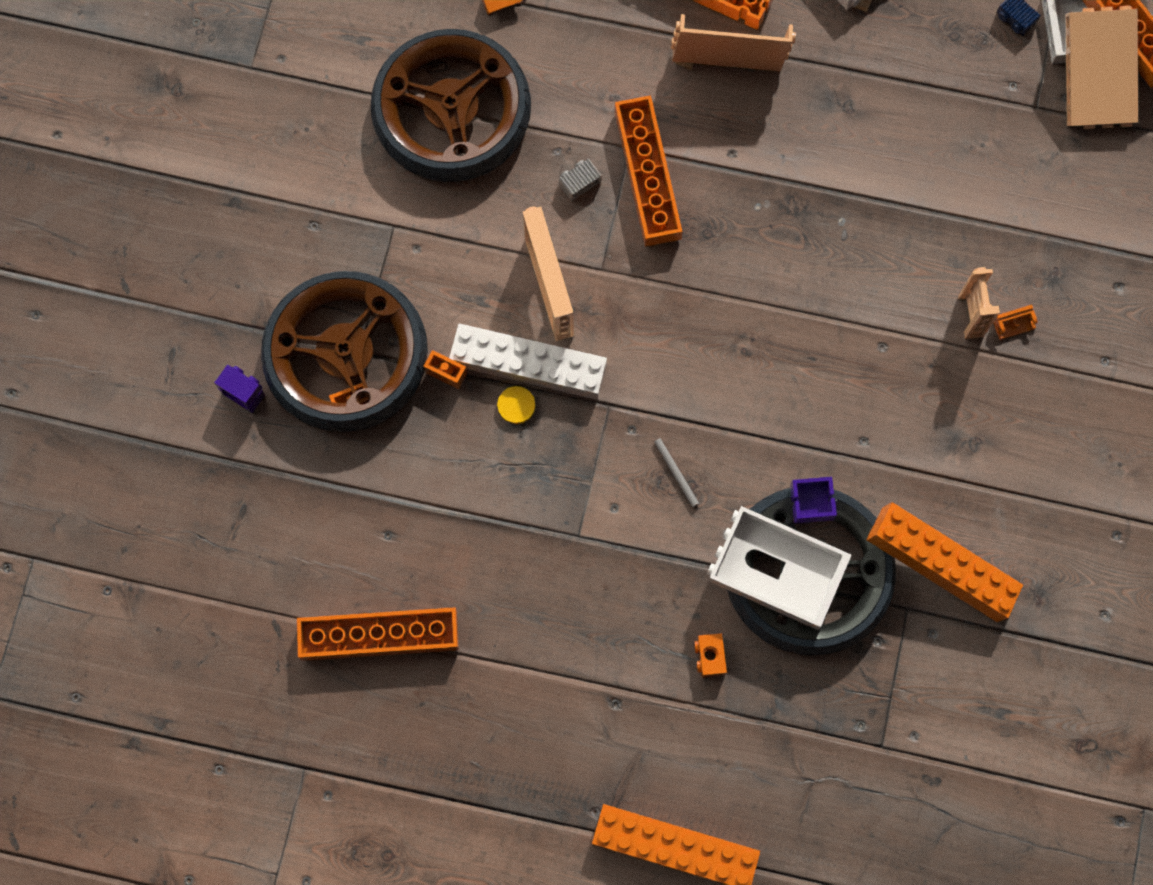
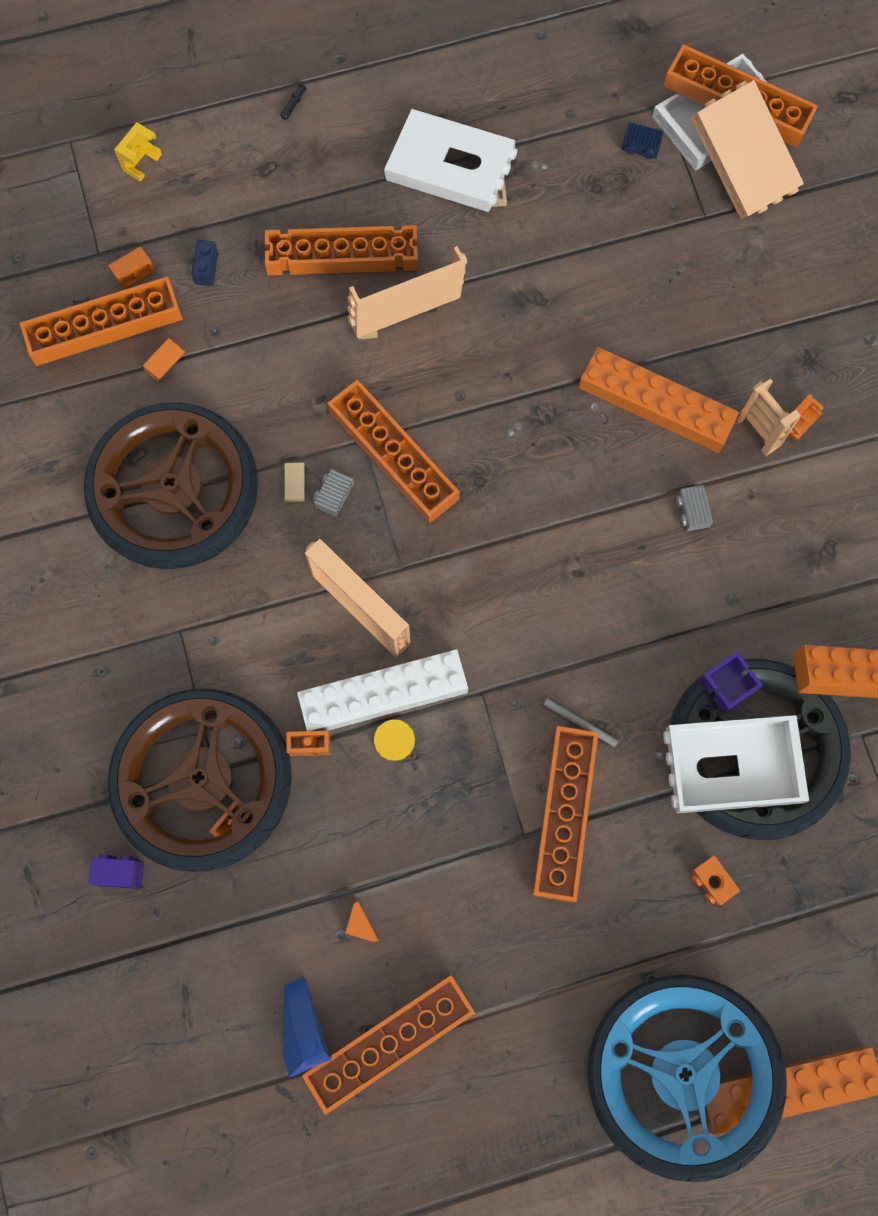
camera: 30 degrees left, 0 degrees up
(316, 587) = (302, 1035): none -> blue wedge
(406, 532) = (359, 924): none -> orange slope
(553, 155) = (294, 482): none -> tan tile
(595, 855) = (764, 1053): none -> dark azure wheel
(619, 536) = (565, 814): none -> orange brick
(875, 349) = (694, 508): none -> light grey brick
(898, 243) = (658, 400): none -> orange brick

